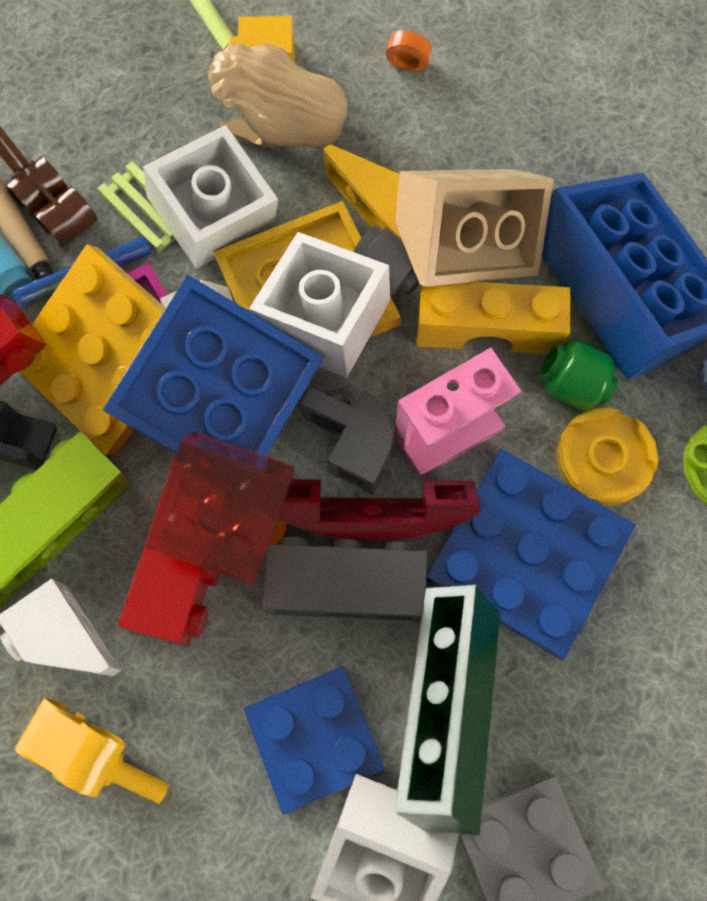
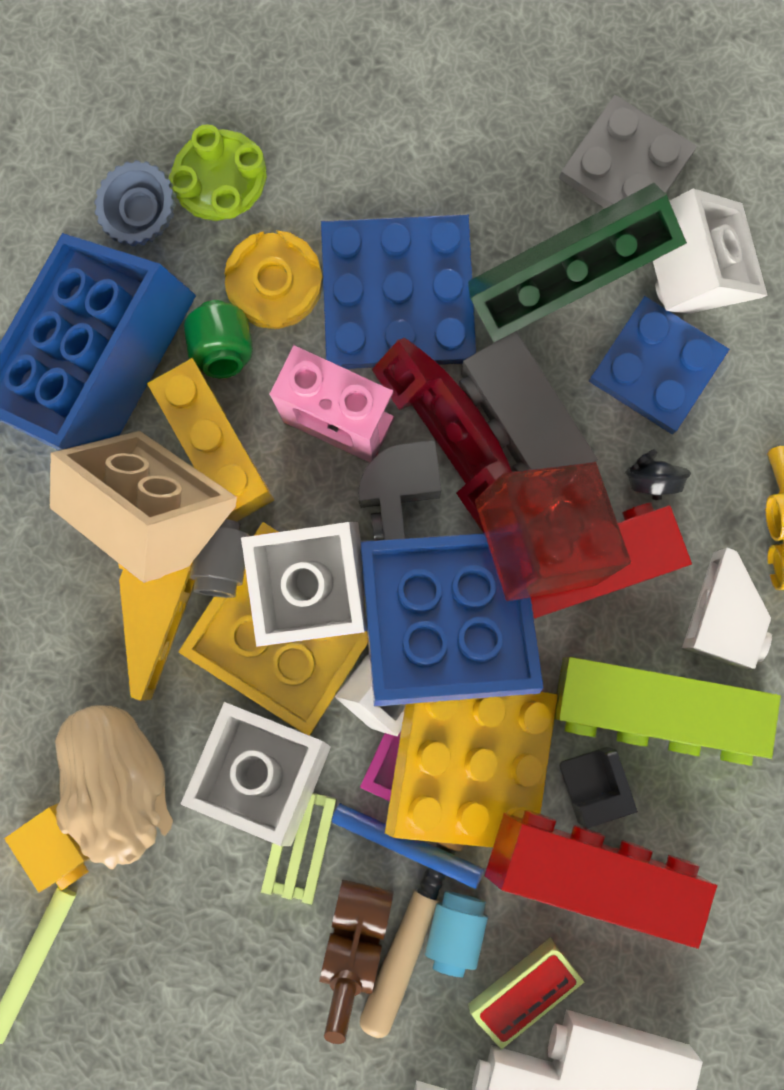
camera: 120 degrees left, 10 degrees up
(214, 659) = (656, 476): none -> black hat

